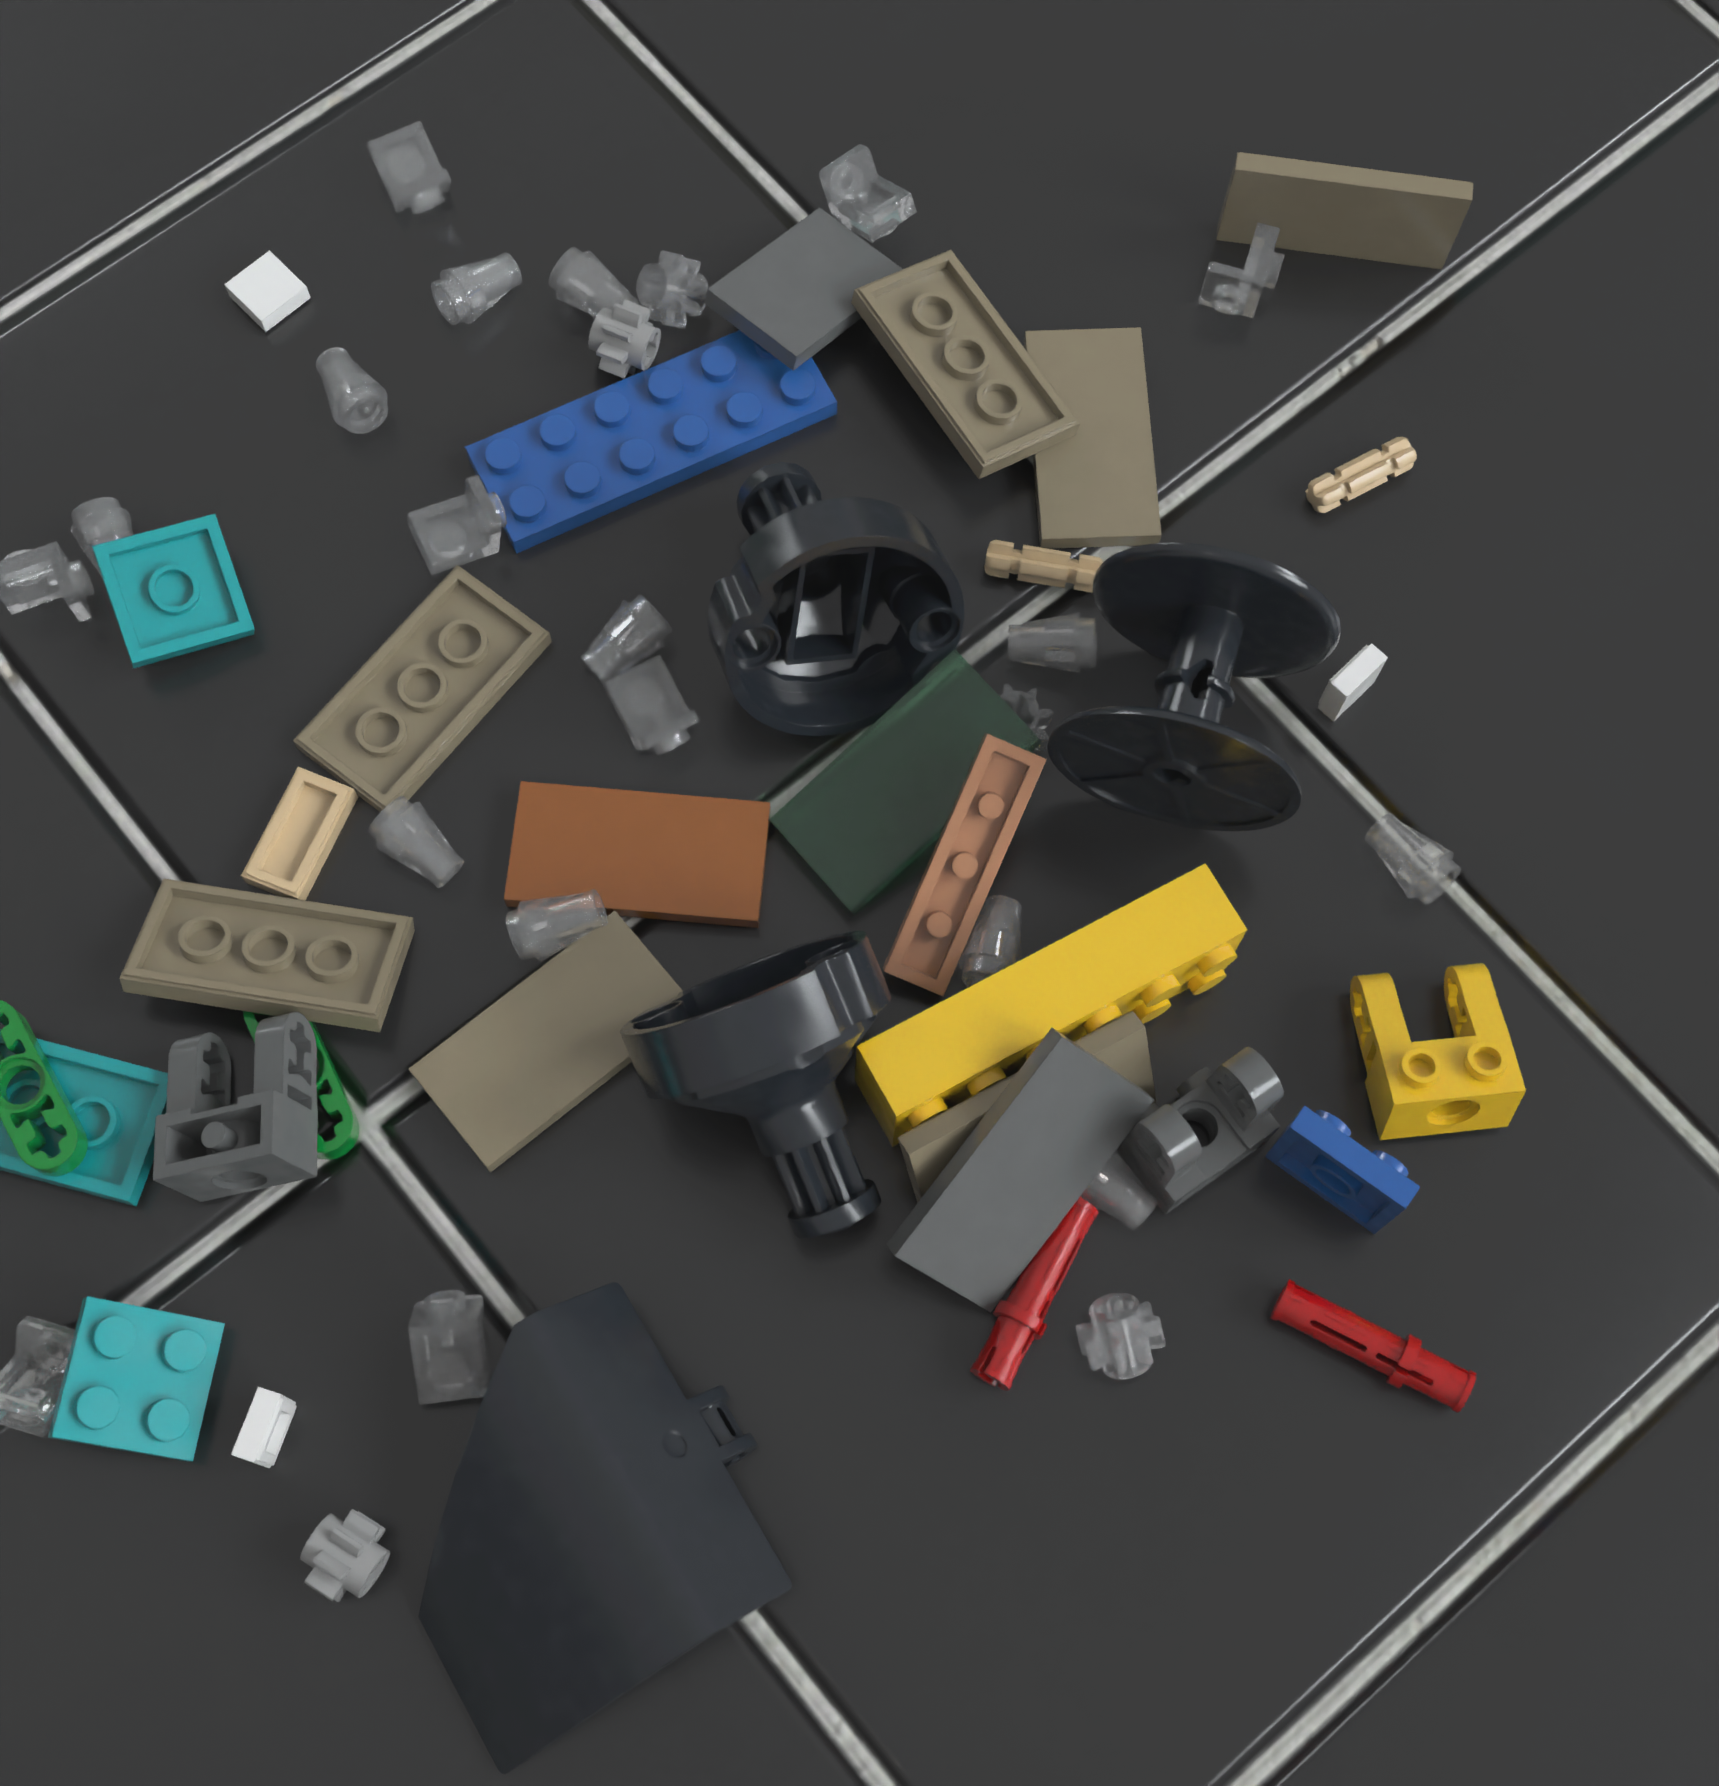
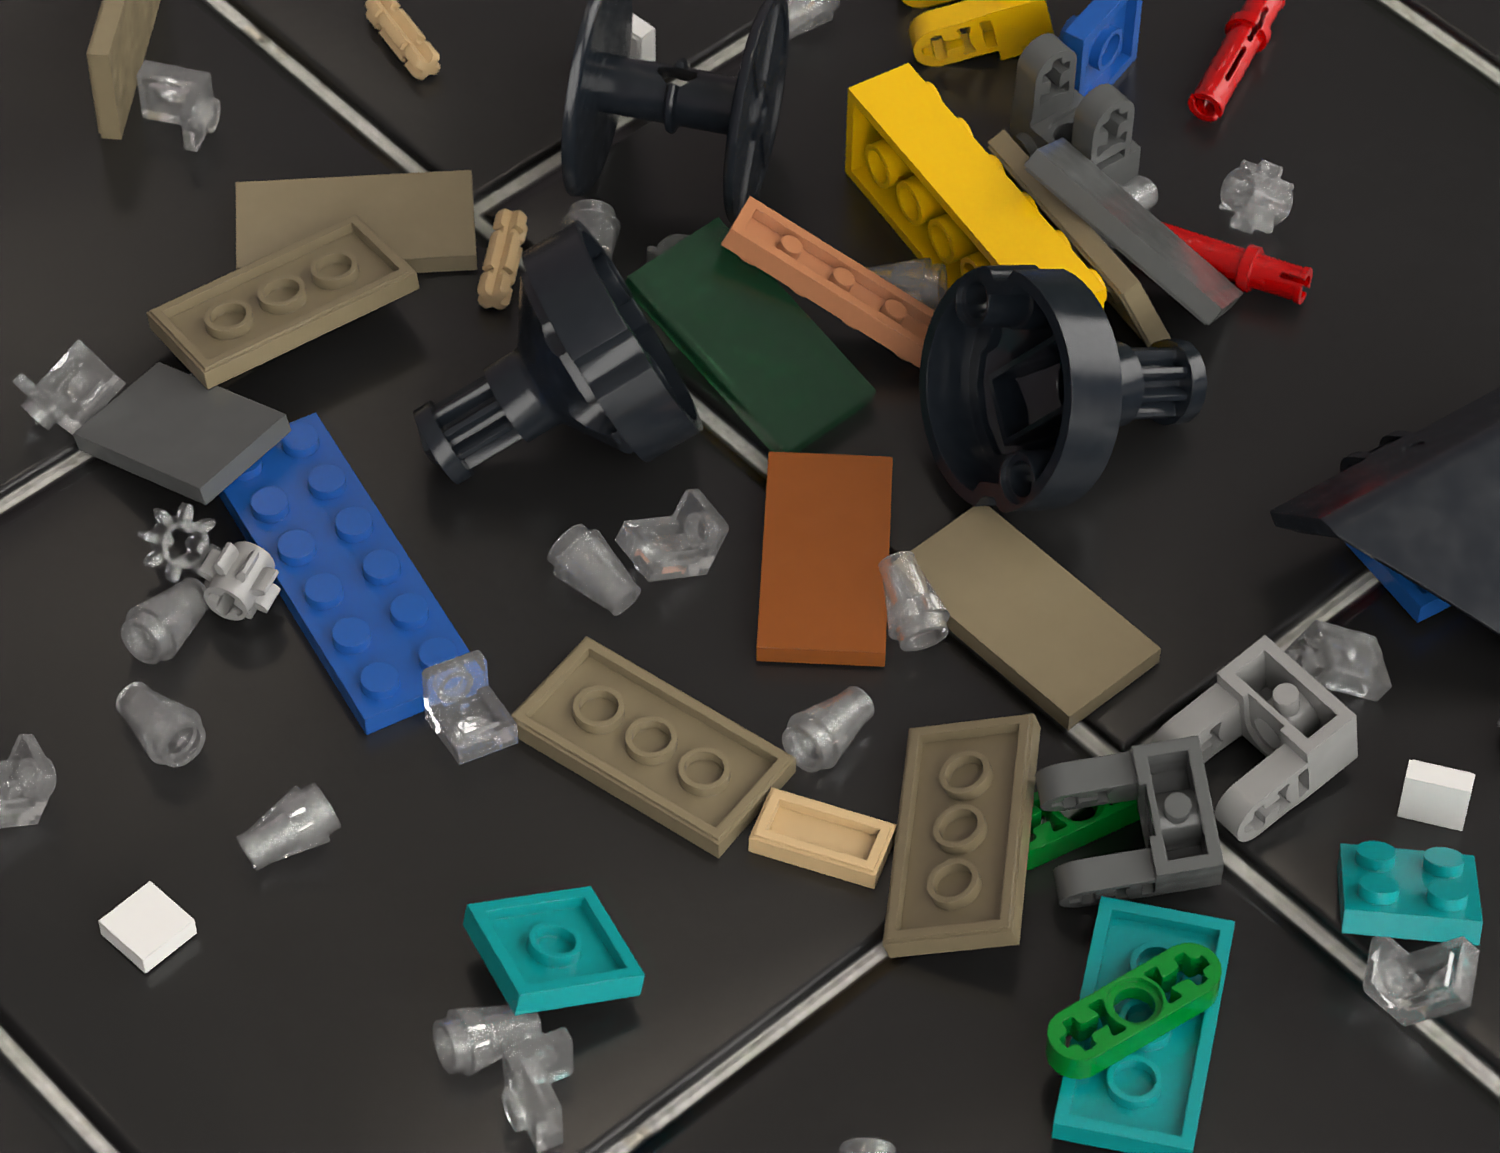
camera: 90 degrees left, 20 degrees down
(361, 1277) = (1286, 717): none -> light grey brick

